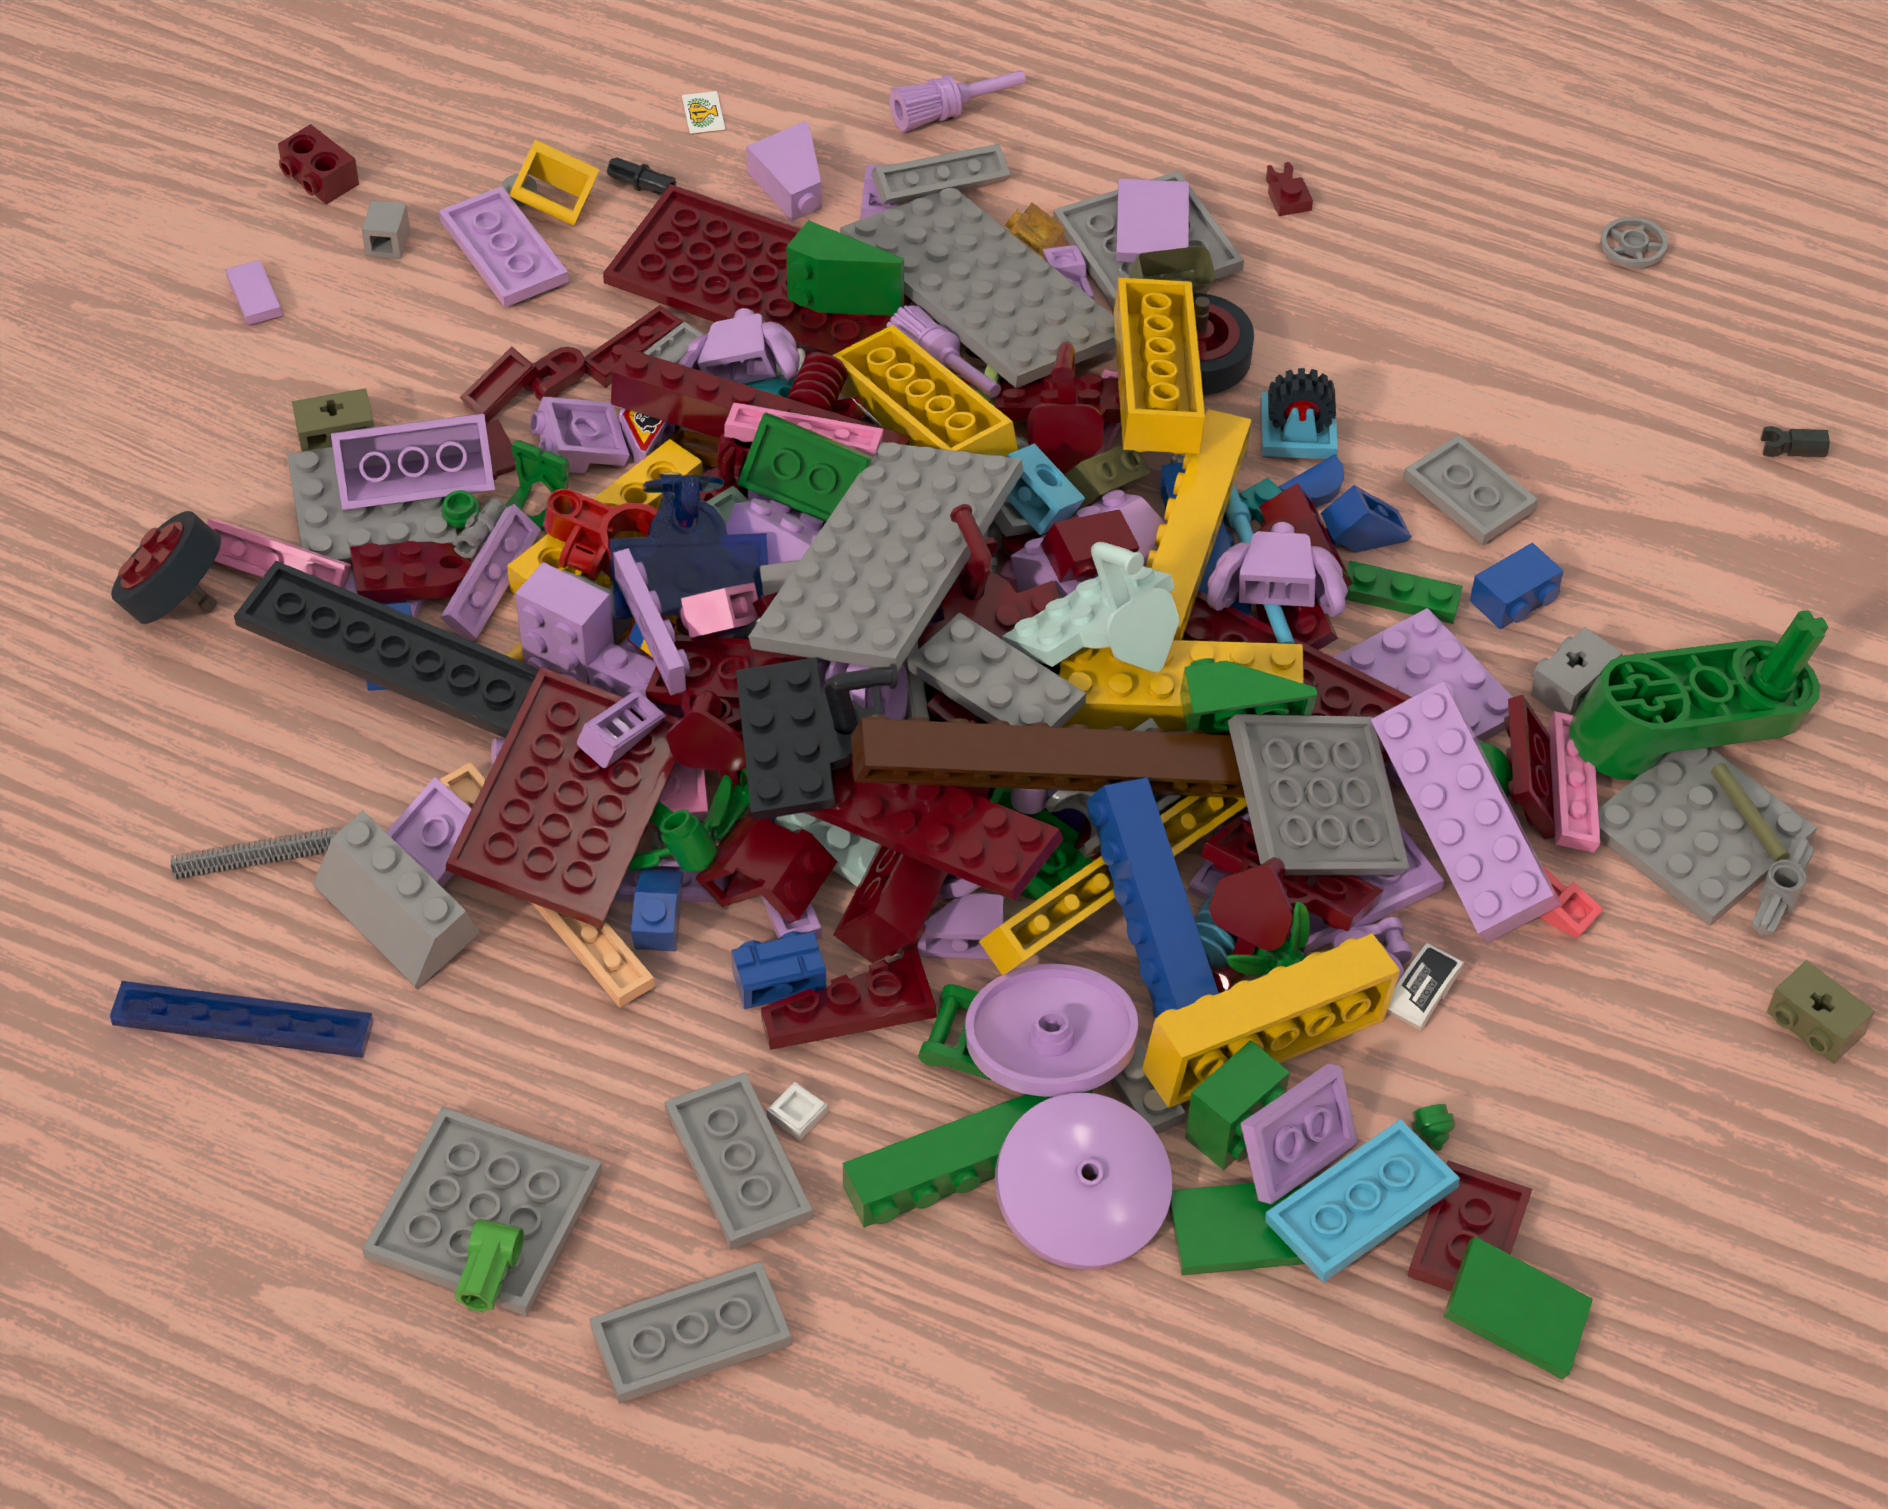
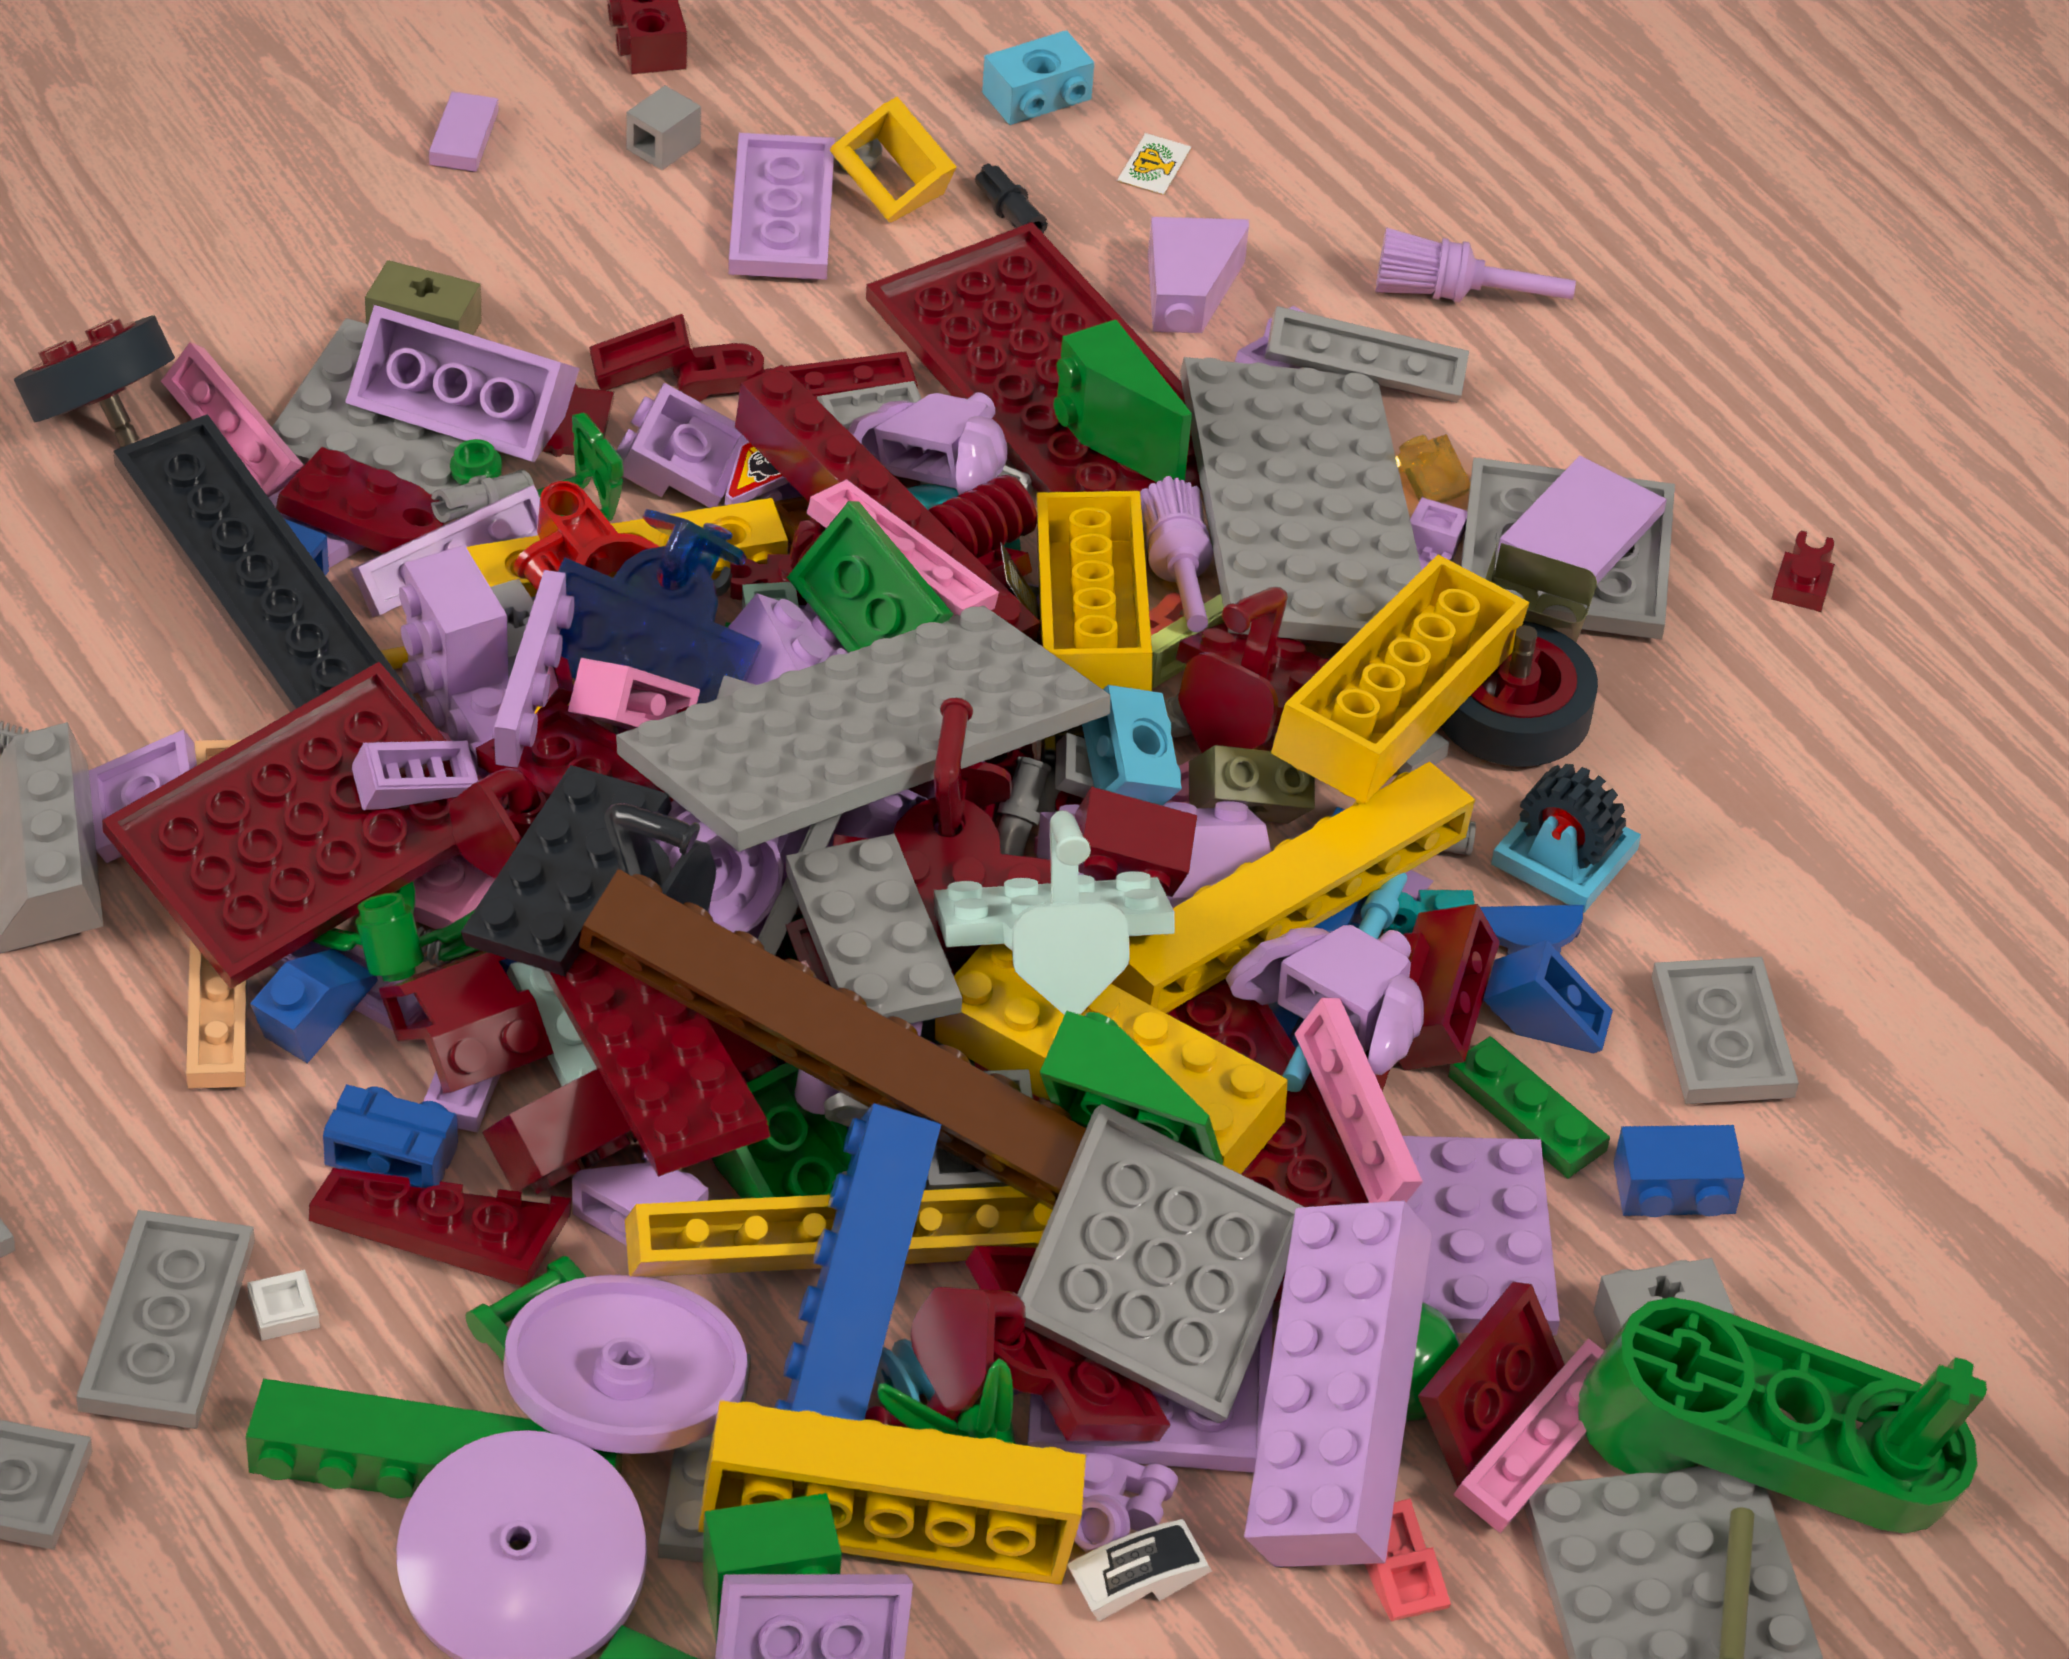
camera: 30 degrees right, 5 degrees down
(593, 88) = (1038, 77): none -> medium azure brick
(1344, 640) = (1357, 1104): none -> bright pink plate

